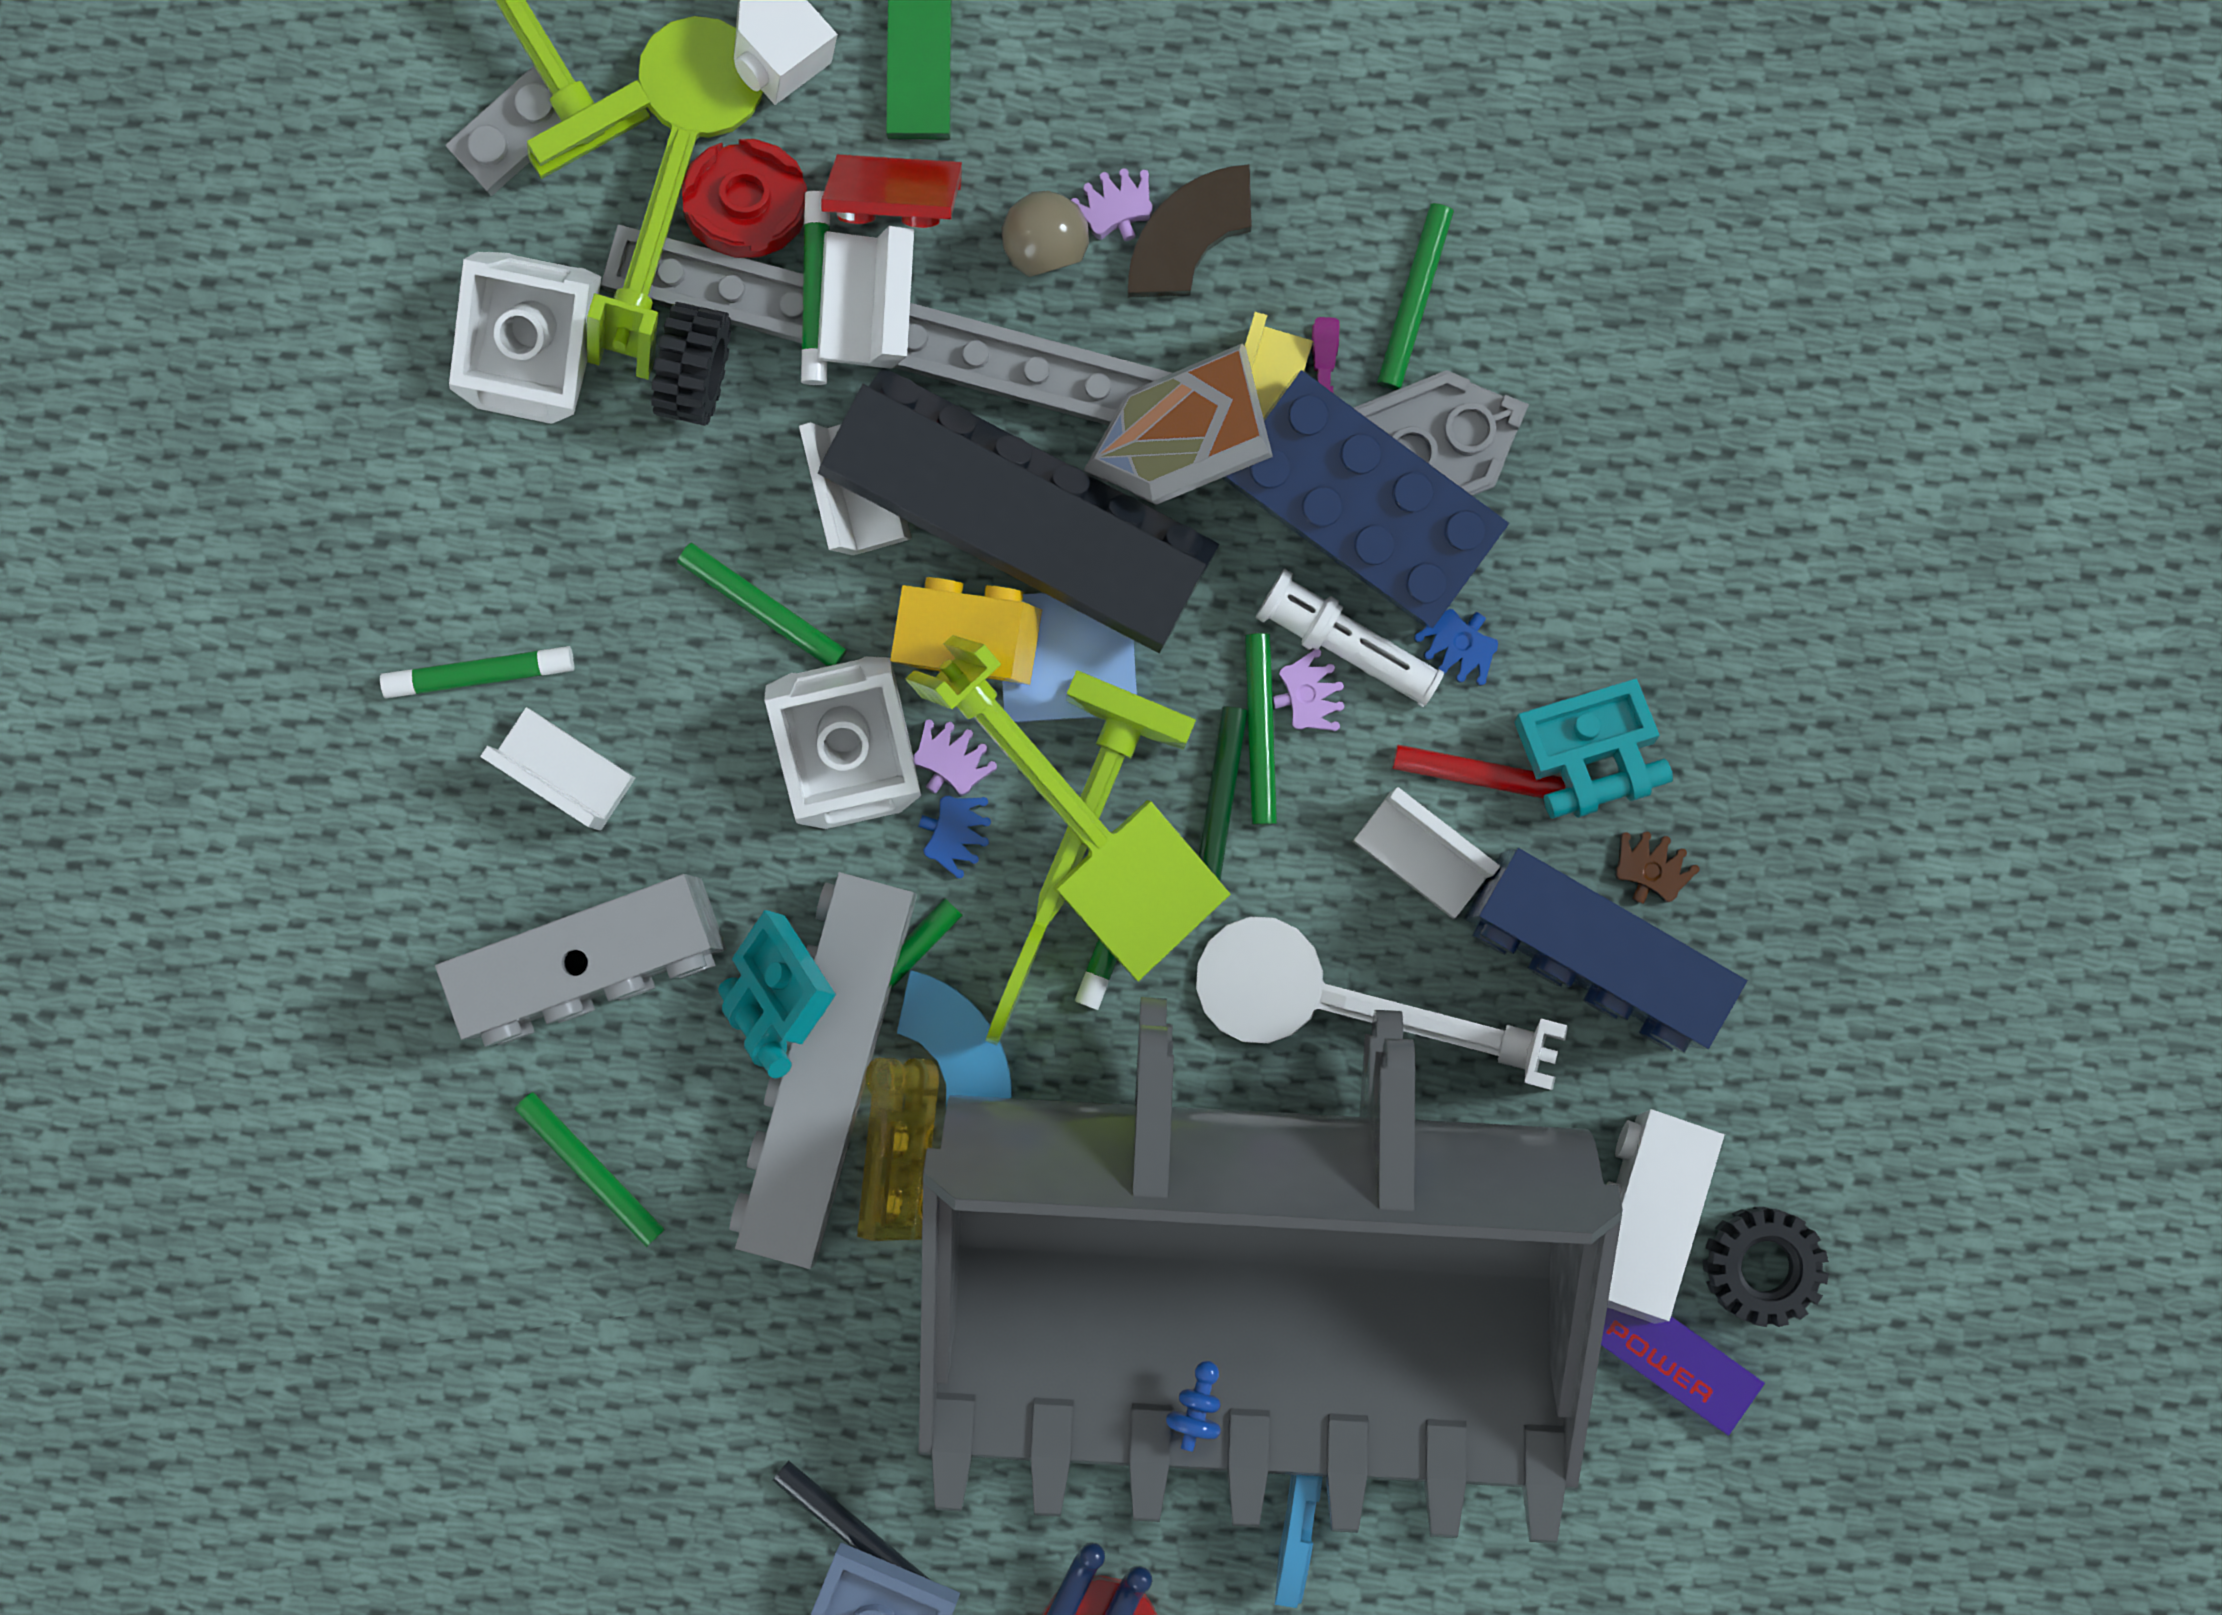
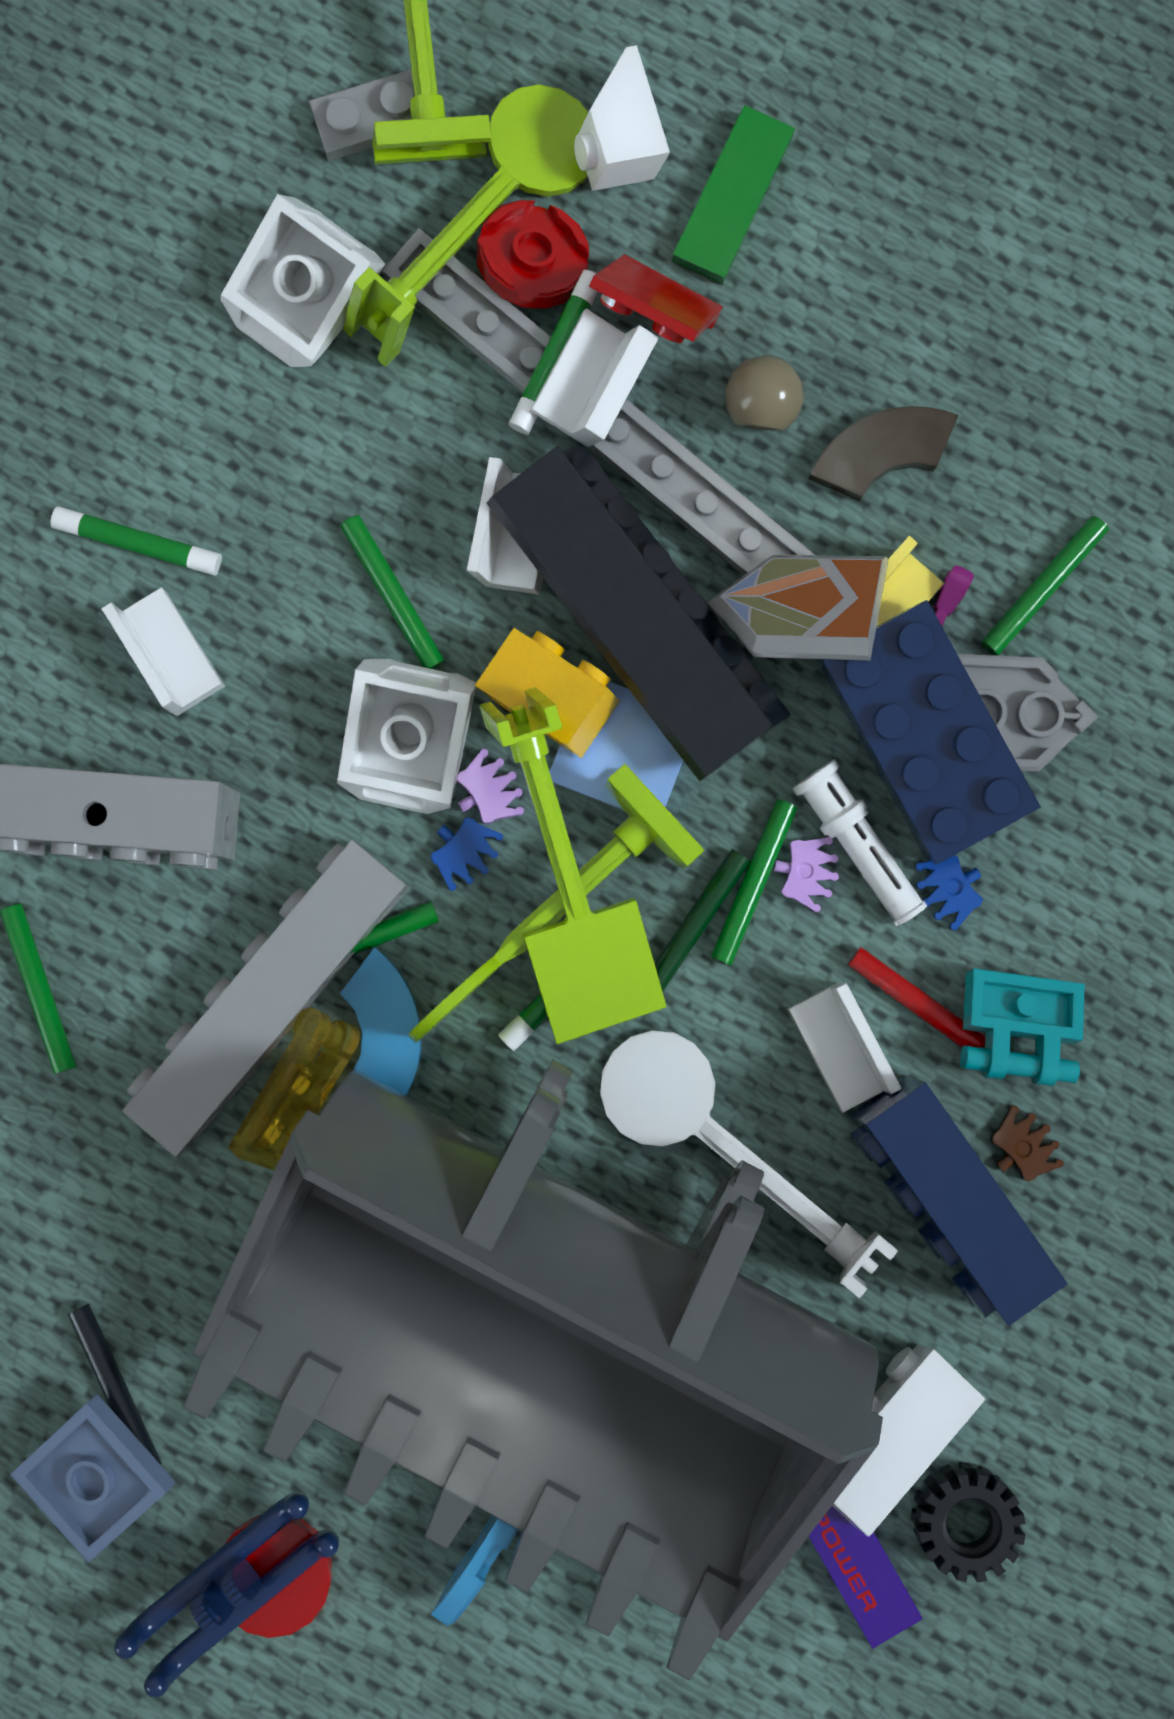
camera: 20 degrees right, 0 degrees up
(691, 363) = (424, 366): black tyre -> none
(777, 992) = (254, 916): teal plate -> none
(1117, 207) = (834, 402): lavender piece -> none
(1199, 1403) = (443, 1422): blue hair -> none

